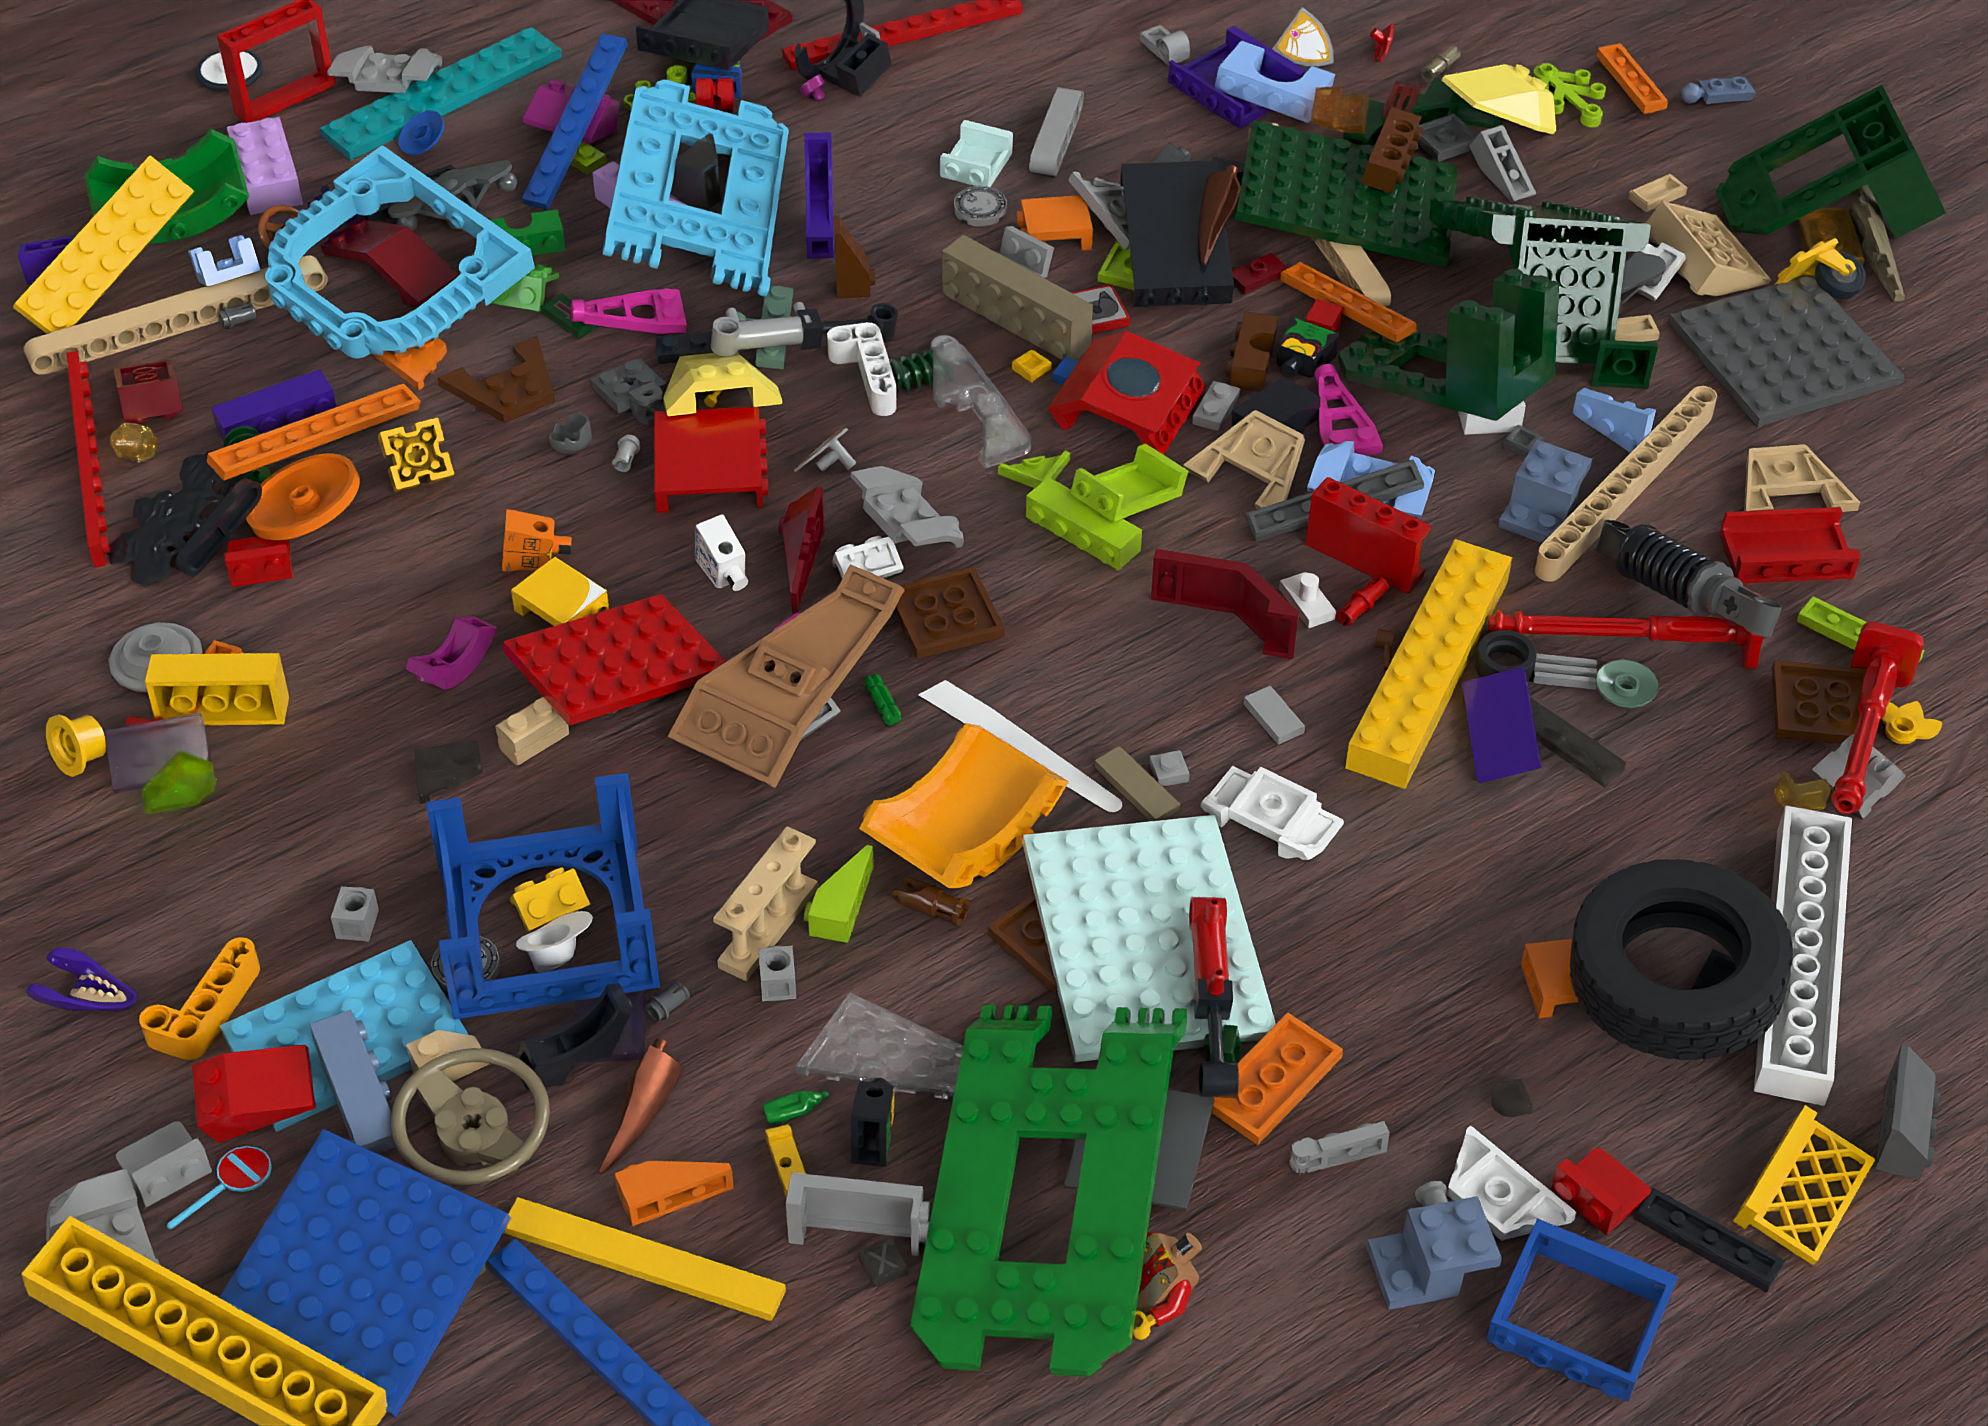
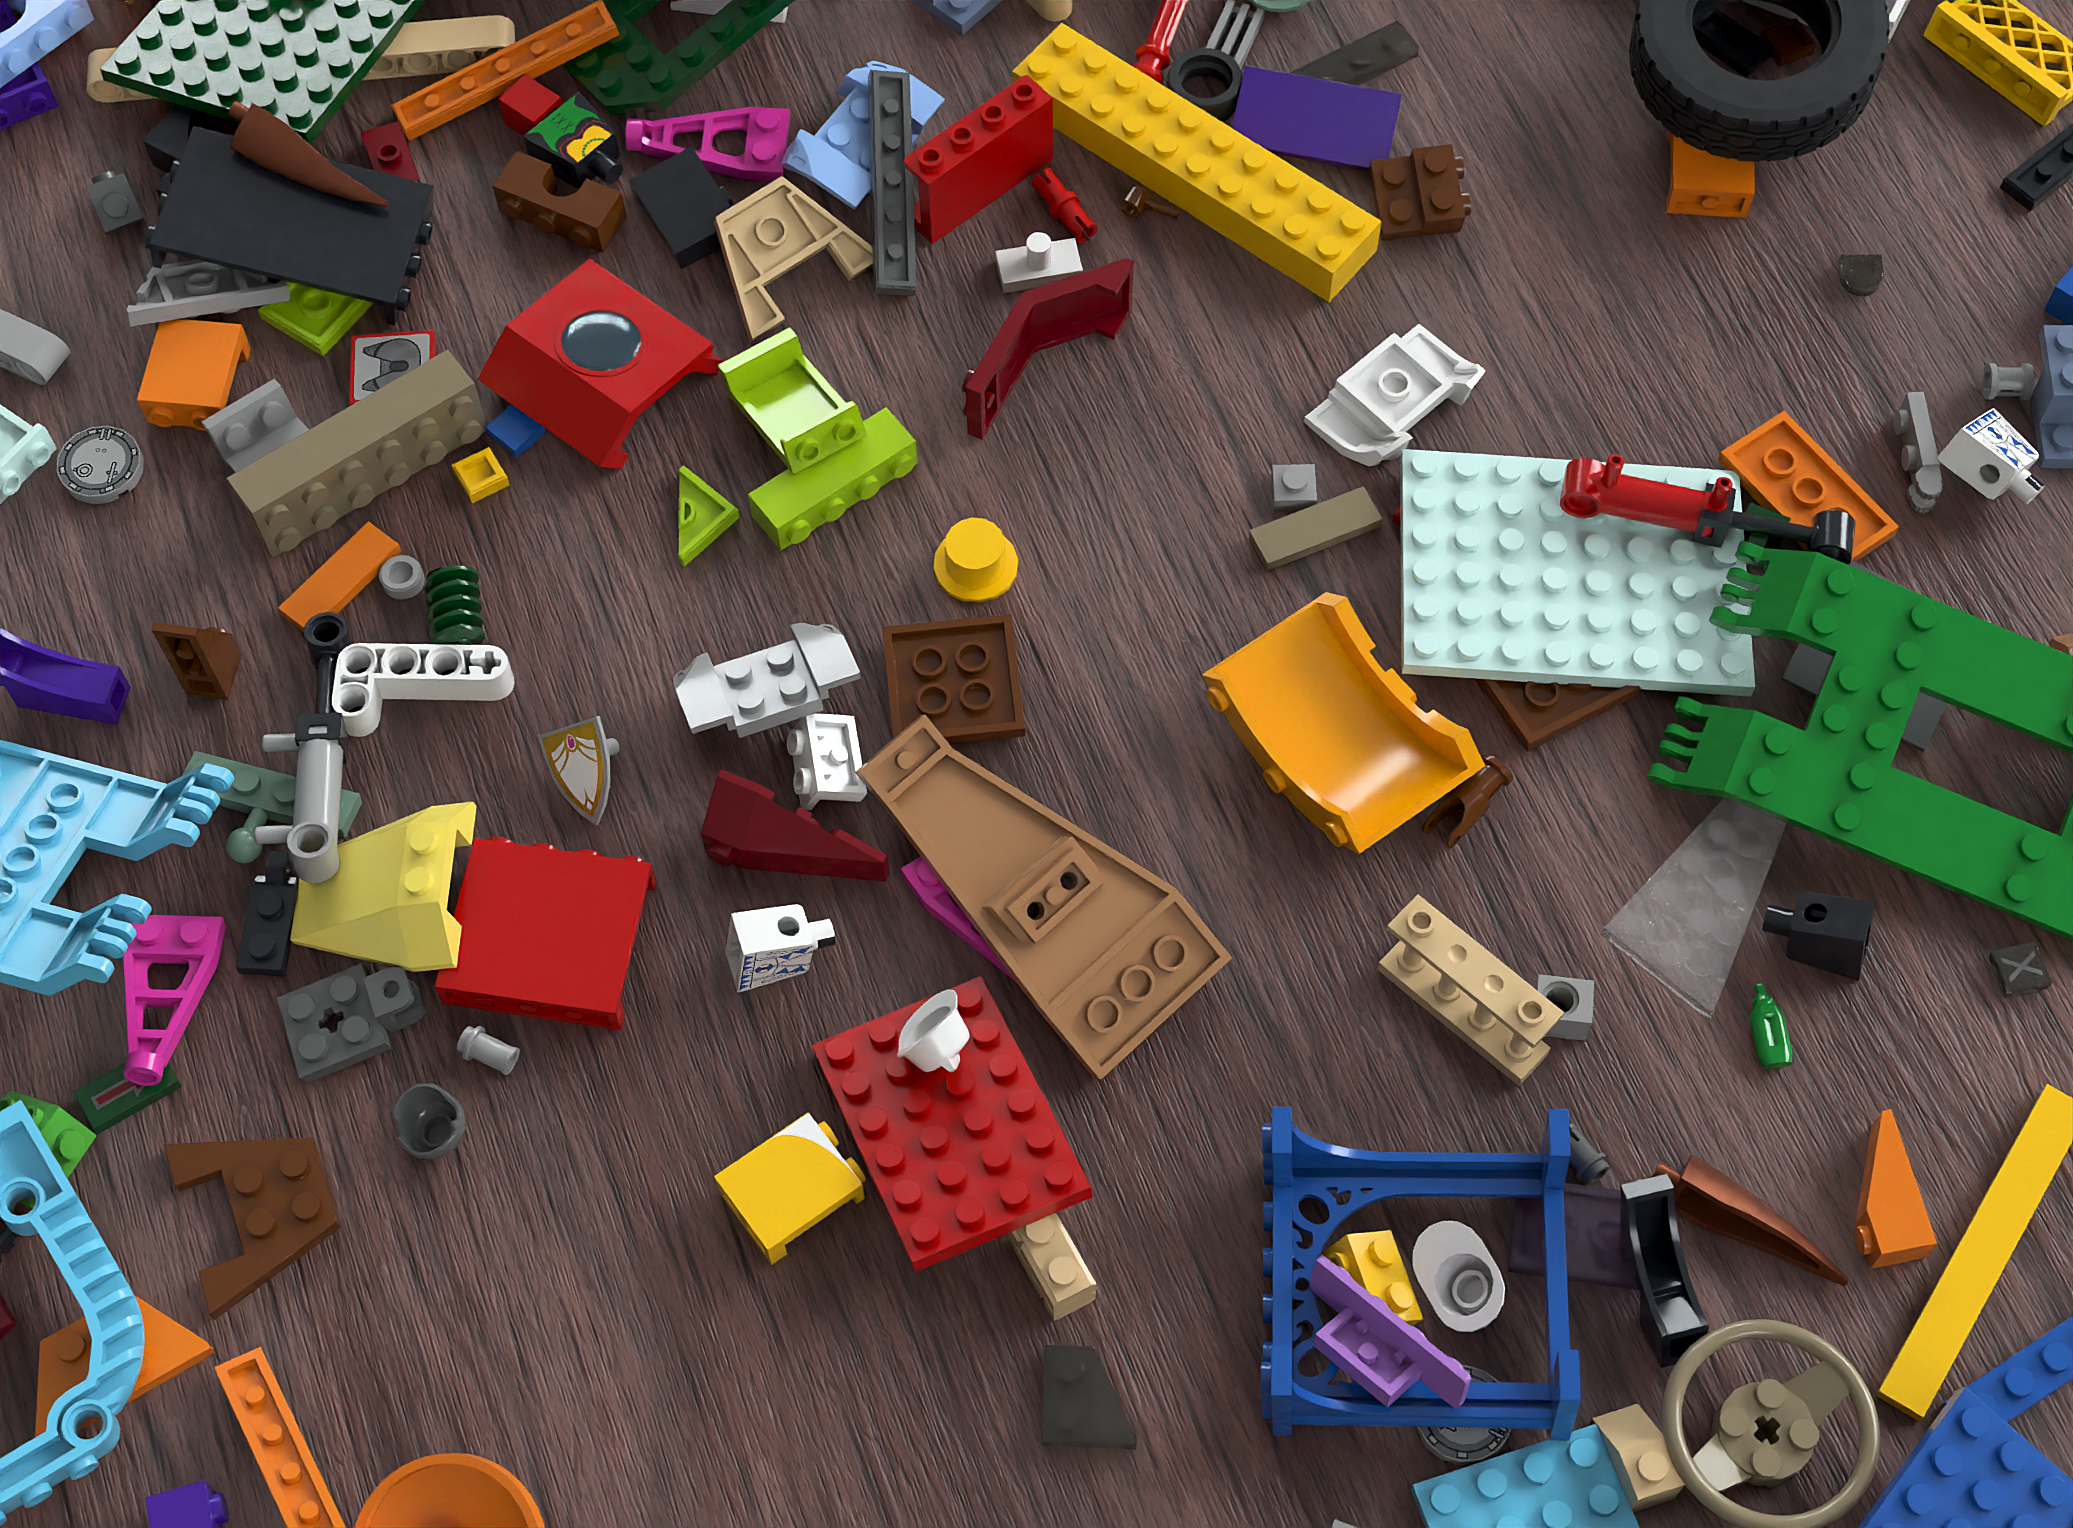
camera: 75 degrees left, 15 degrees up
(415, 454) = (420, 1358): yellow brick -> none
(456, 656) = (870, 1355): magenta arch -> none
(488, 884) = (1378, 1345): none -> medium lavender bracket
(530, 541) = (663, 1212): orange torso -> none
(659, 629) = (934, 1034): none -> white piece
(784, 1153) = (1881, 1048): yellow piece -> none
(840, 898) = (1465, 904): lime slope -> none
(856, 1207) = (1957, 1036): light grey panel -> none
(882, 699) = (1093, 793): green axle -> none
(934, 321) = (341, 576): none -> orange tile
(964, 383) = (565, 536): clear windscreen -> none
(972, 711) = (1188, 657): white sticker -> none
(1046, 608) = (975, 561): none -> yellow piece
(1216, 406) = (644, 273): light grey plate -> none
(1274, 715) = (1230, 351): light grey tile -> none
(1345, 1189) = (1993, 458): none -> white torso
(1460, 797) = (1420, 193): none -> reddish brown plate
(1505, 1190) = (1990, 317): white wing -> none
(1599, 1189) = (2004, 225): red bracket -> none

